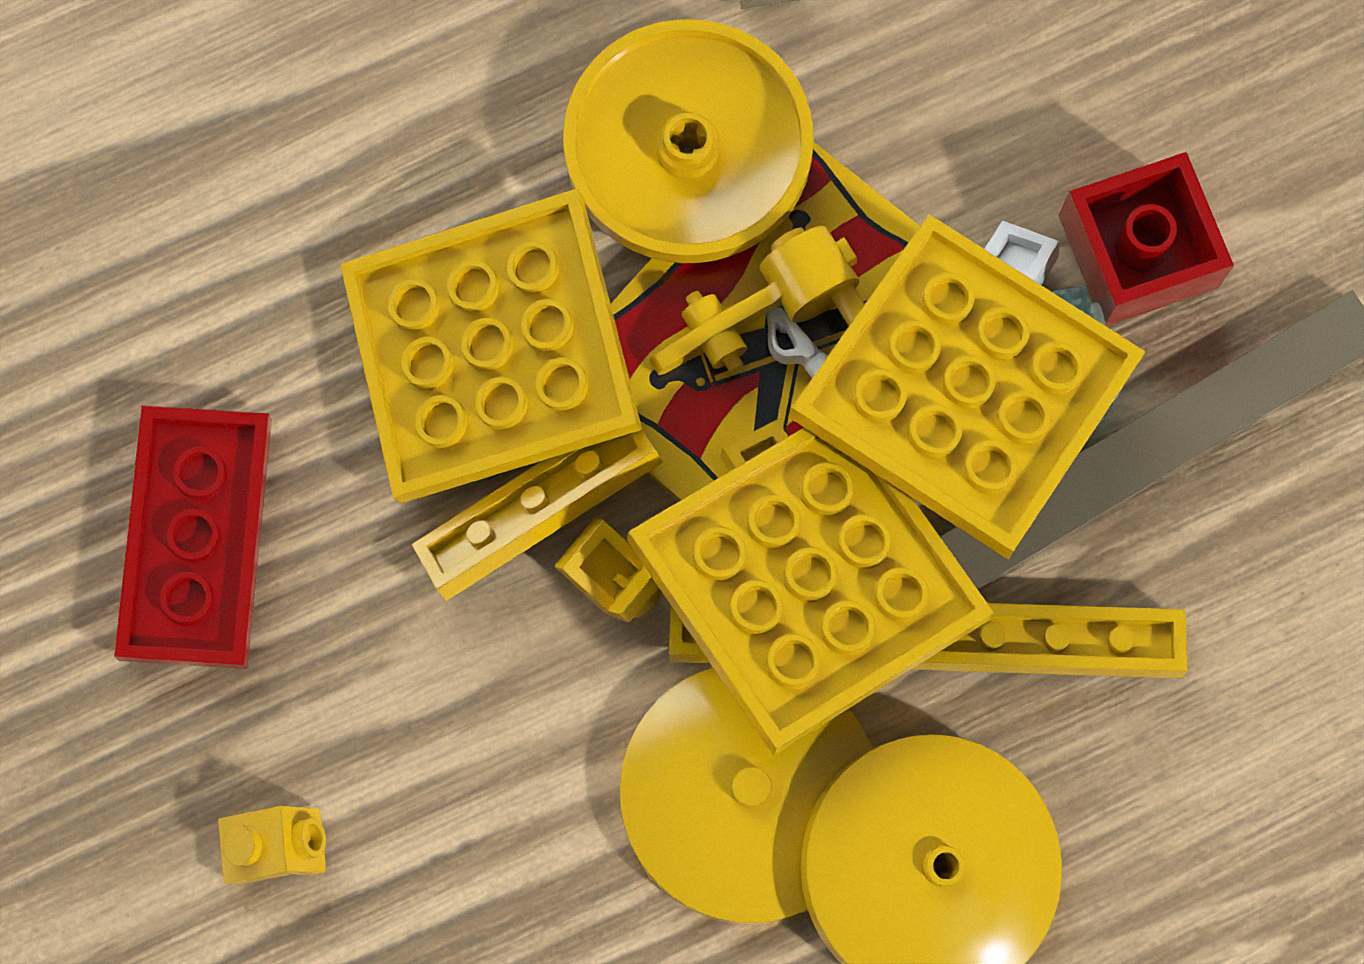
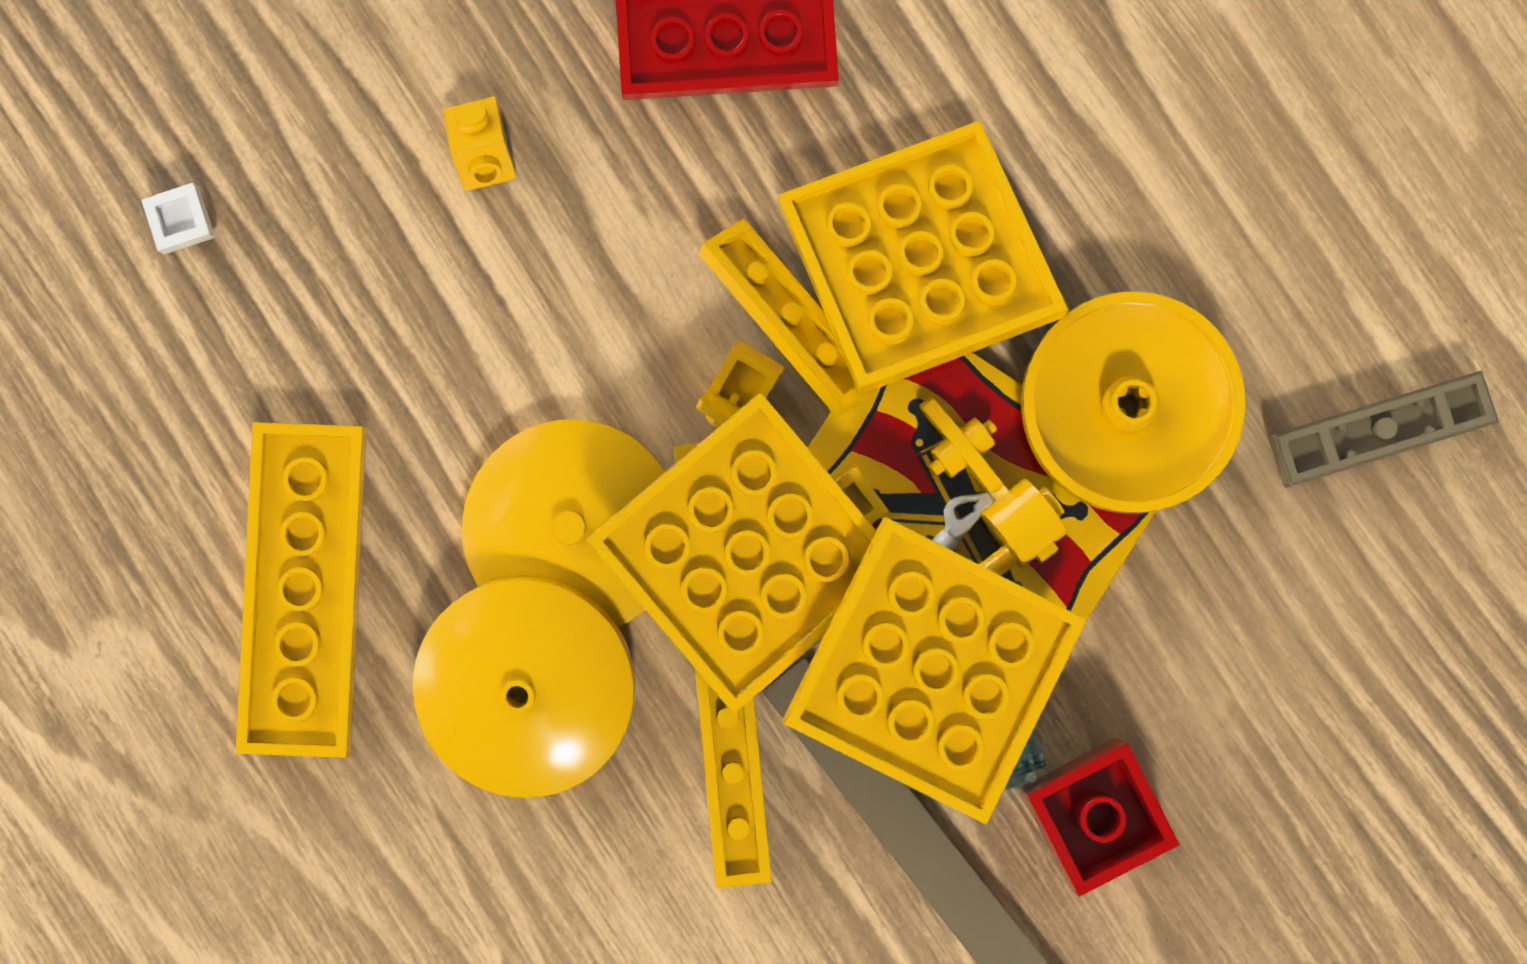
camera: 90 degrees right, 10 degrees up
(1024, 250) = (1070, 708): white plate -> none

